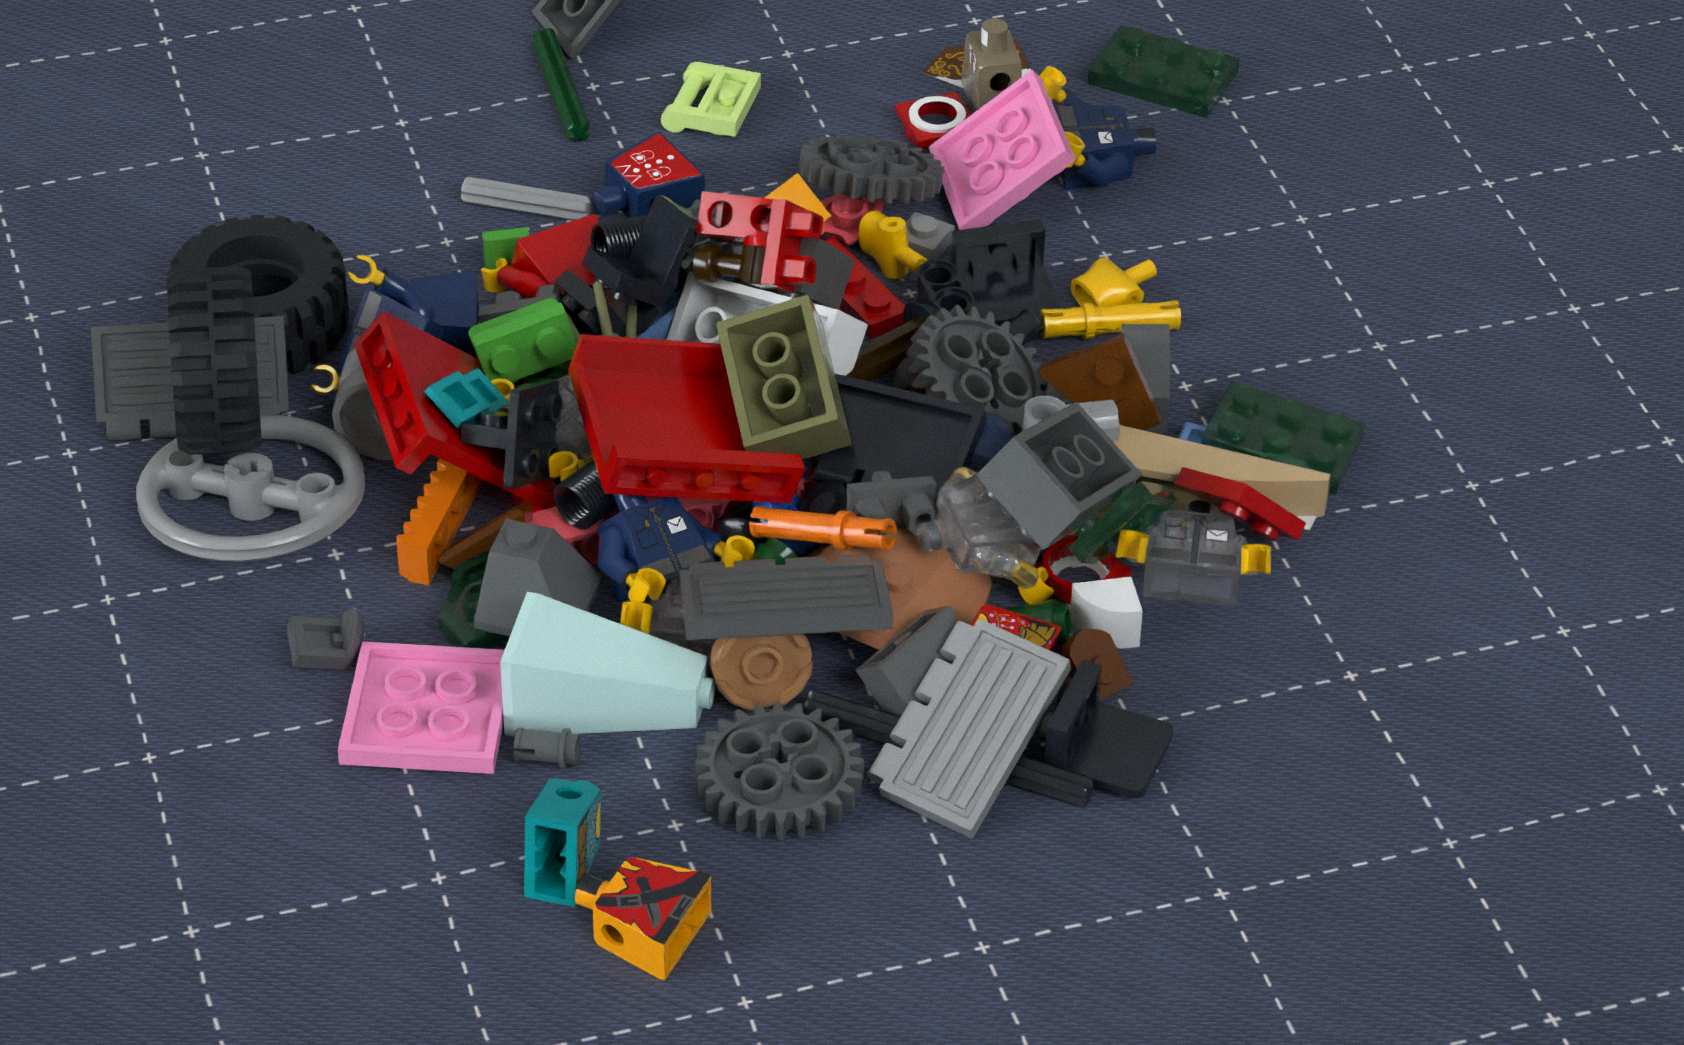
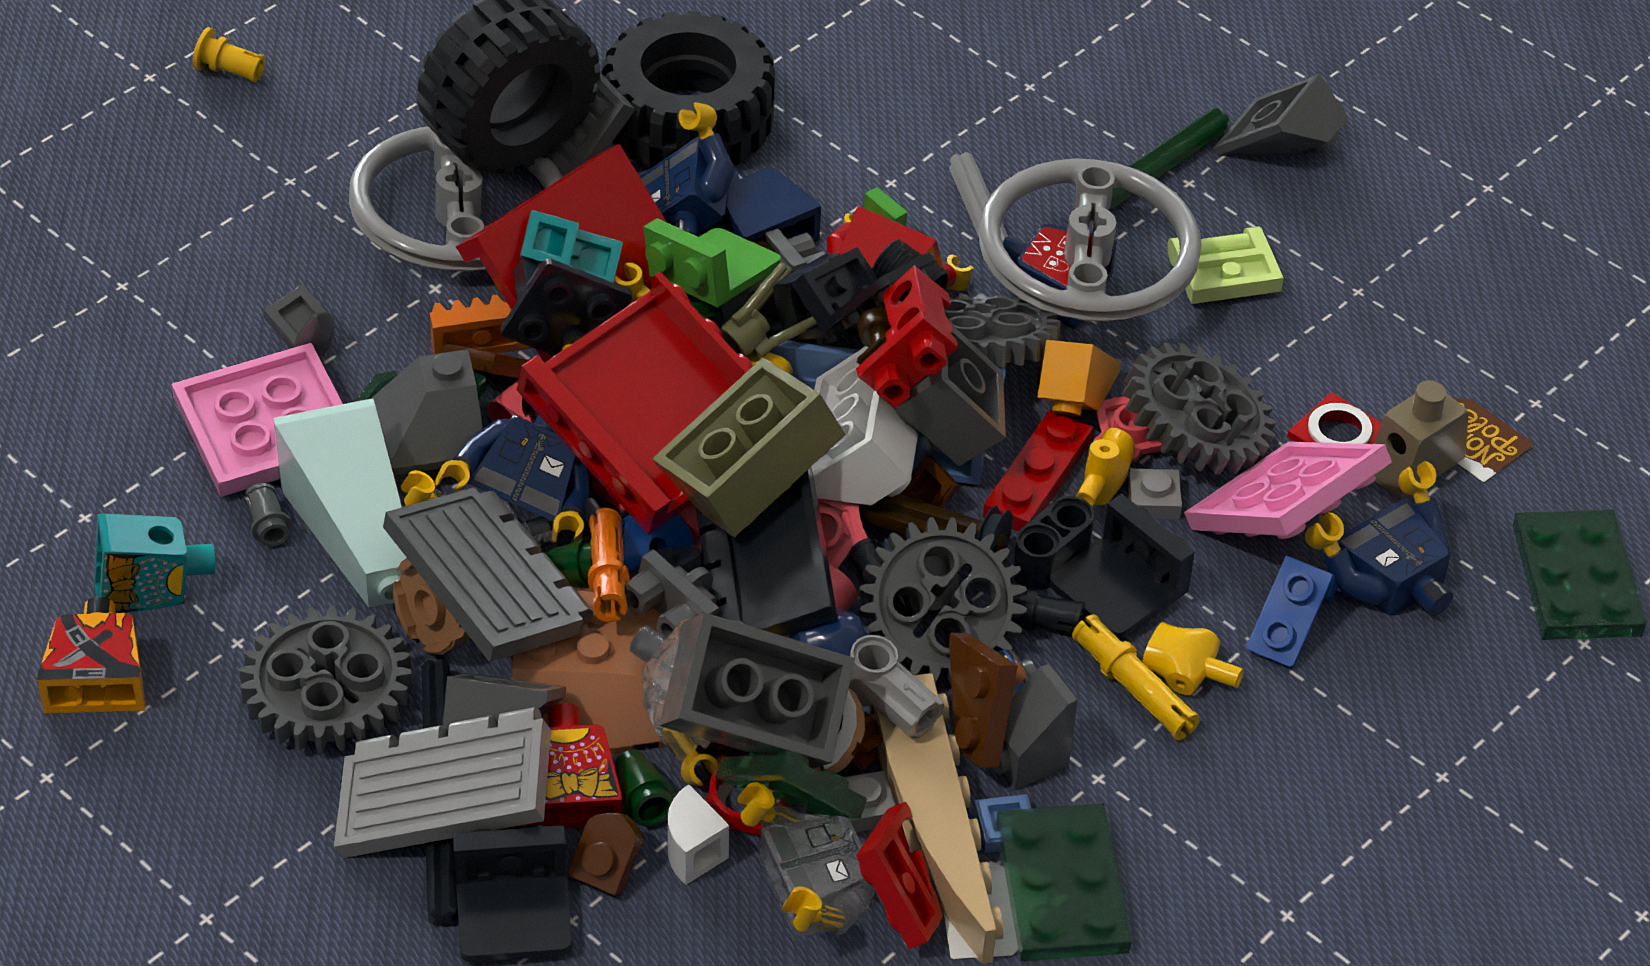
camera: 60 degrees right, 5 degrees up
(664, 134) = (1087, 276): none -> light grey piece
(1108, 211) = (1291, 611): none -> blue bracket

